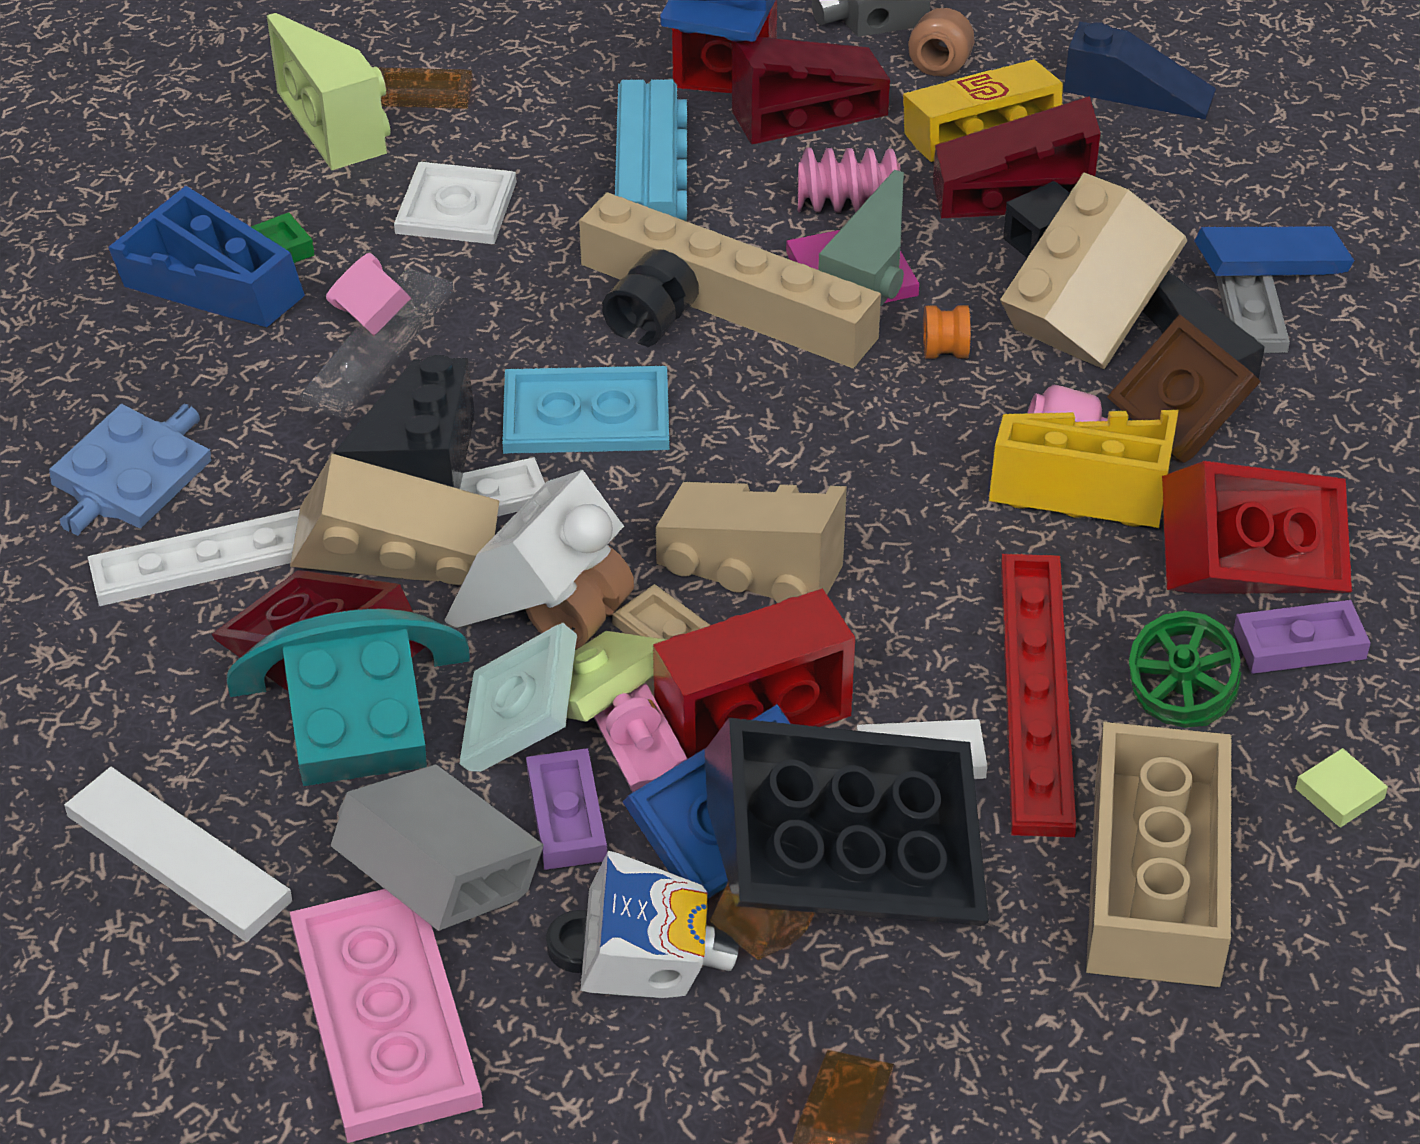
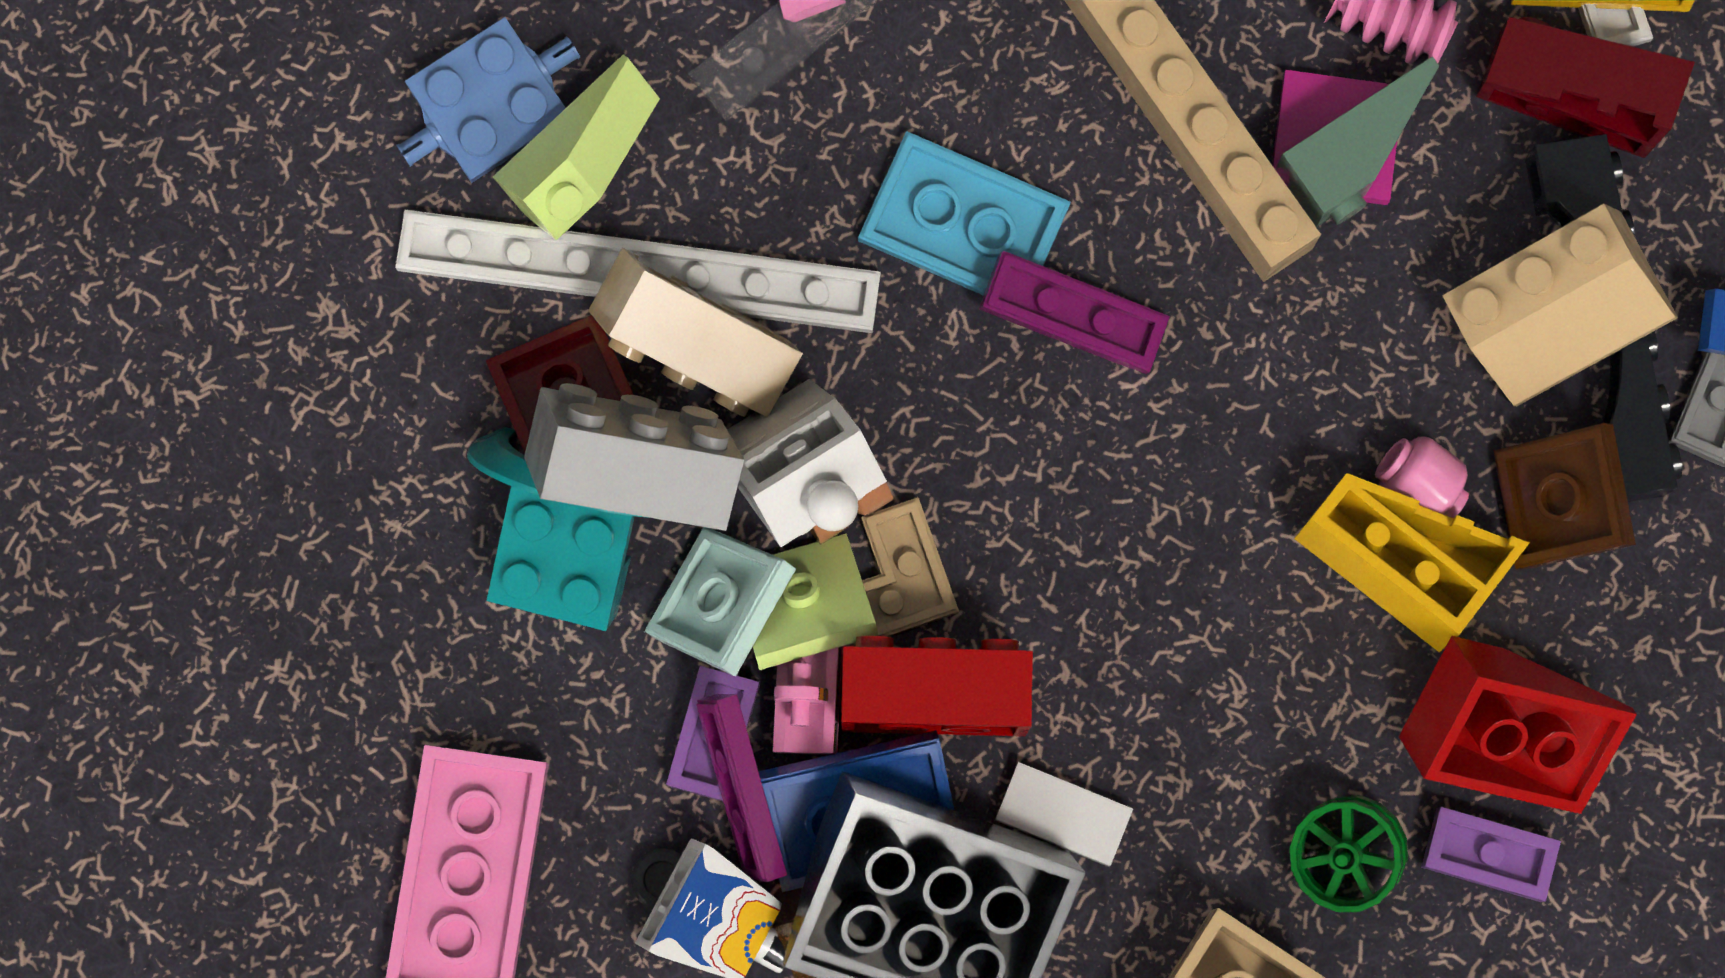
camera: 25 degrees right, 35 degrees up
(179, 853) = (360, 616): white tile -> none
(225, 464) = (580, 150): none -> yellowish green slope
(389, 558) = (633, 457): none -> brick
(419, 423) = (765, 214): black wedge -> none
(436, 846) = (571, 740): light grey brick -> none
(613, 803) = (741, 787): none -> magenta tile
(651, 296) = (1099, 102): black wheel -> none
(712, 425) = (1074, 312): none -> magenta tile
(754, 540) = (1026, 500): tan wedge -> none
(946, 332) = (1376, 290): orange wheel -> none
(1037, 697) = (1209, 792): red tile -> none

